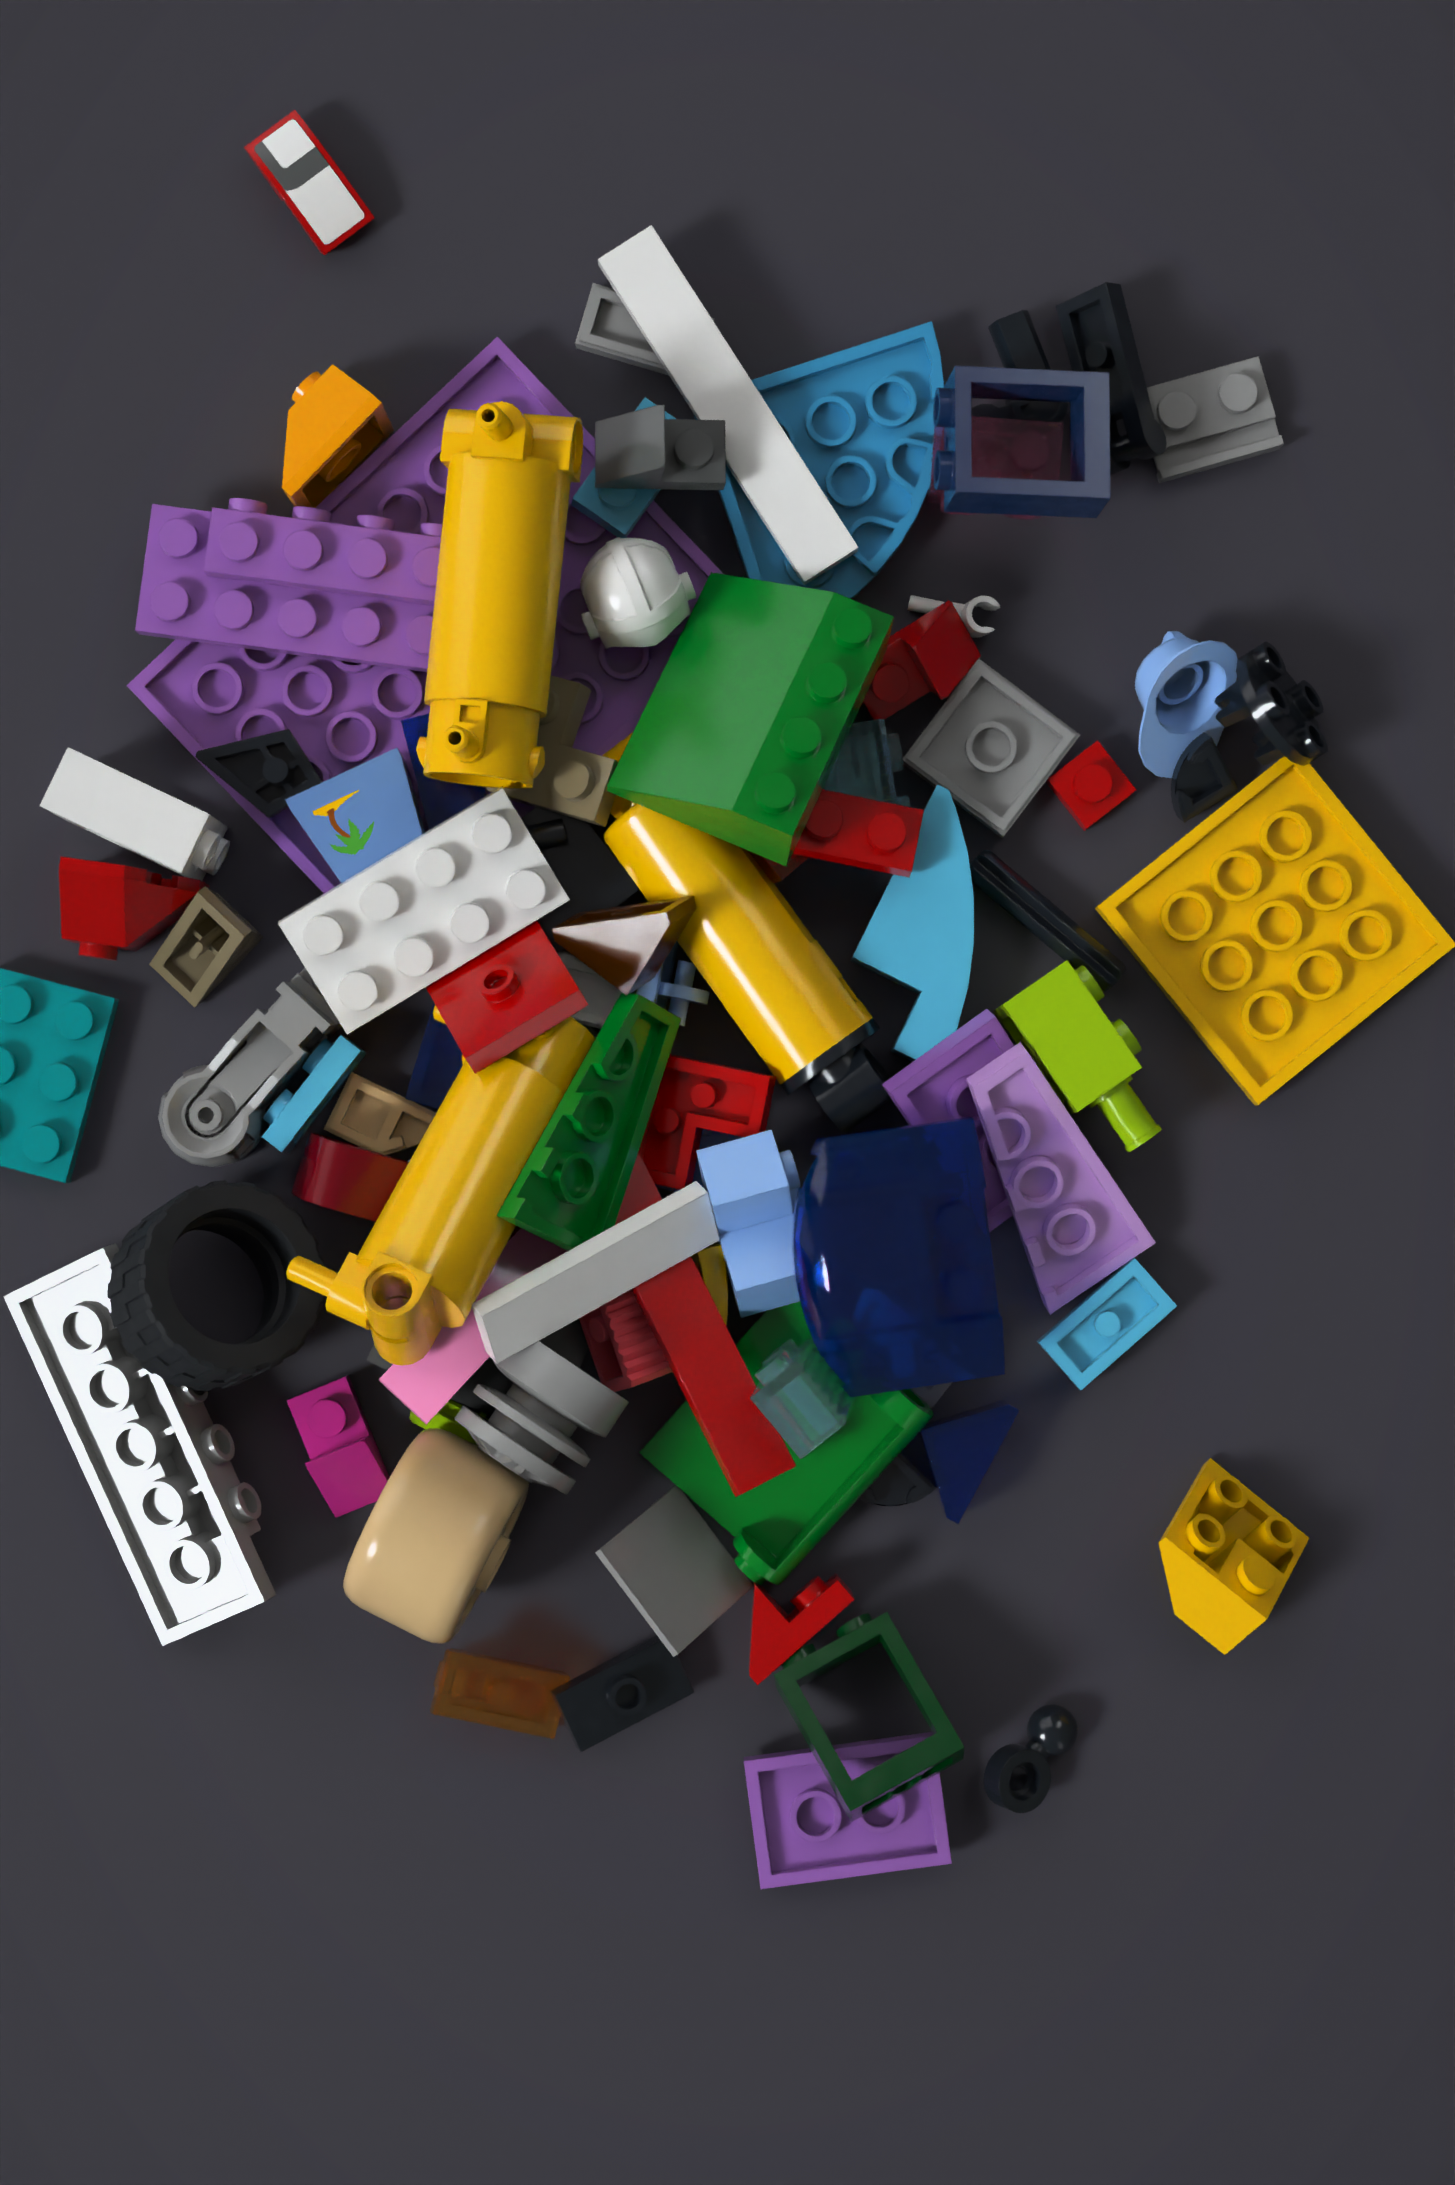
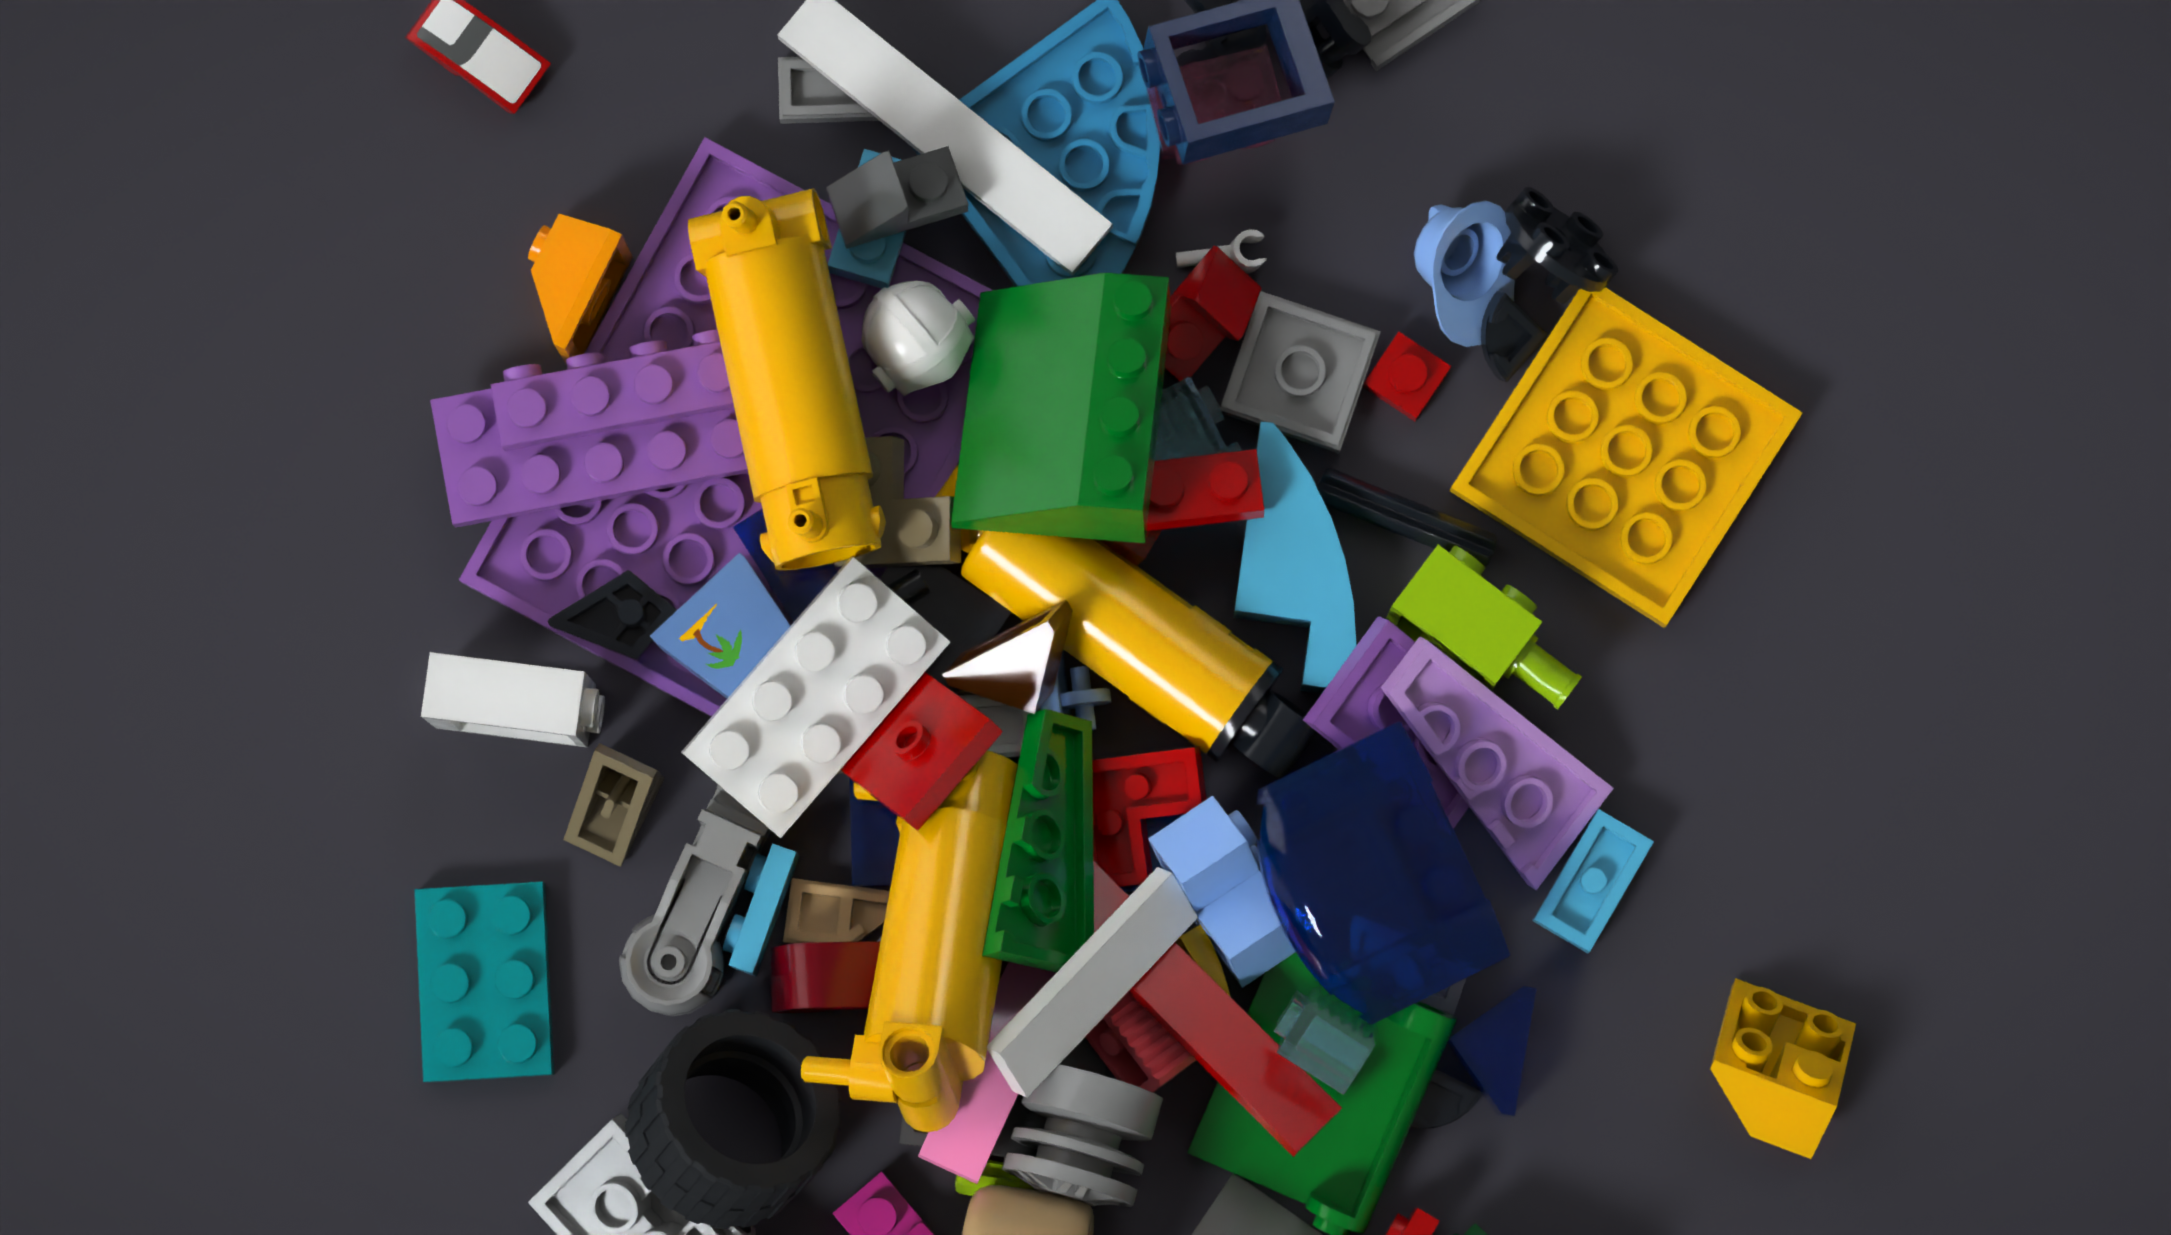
camera: 15 degrees left, 5 degrees down
(118, 905) = (521, 789): red slope -> none

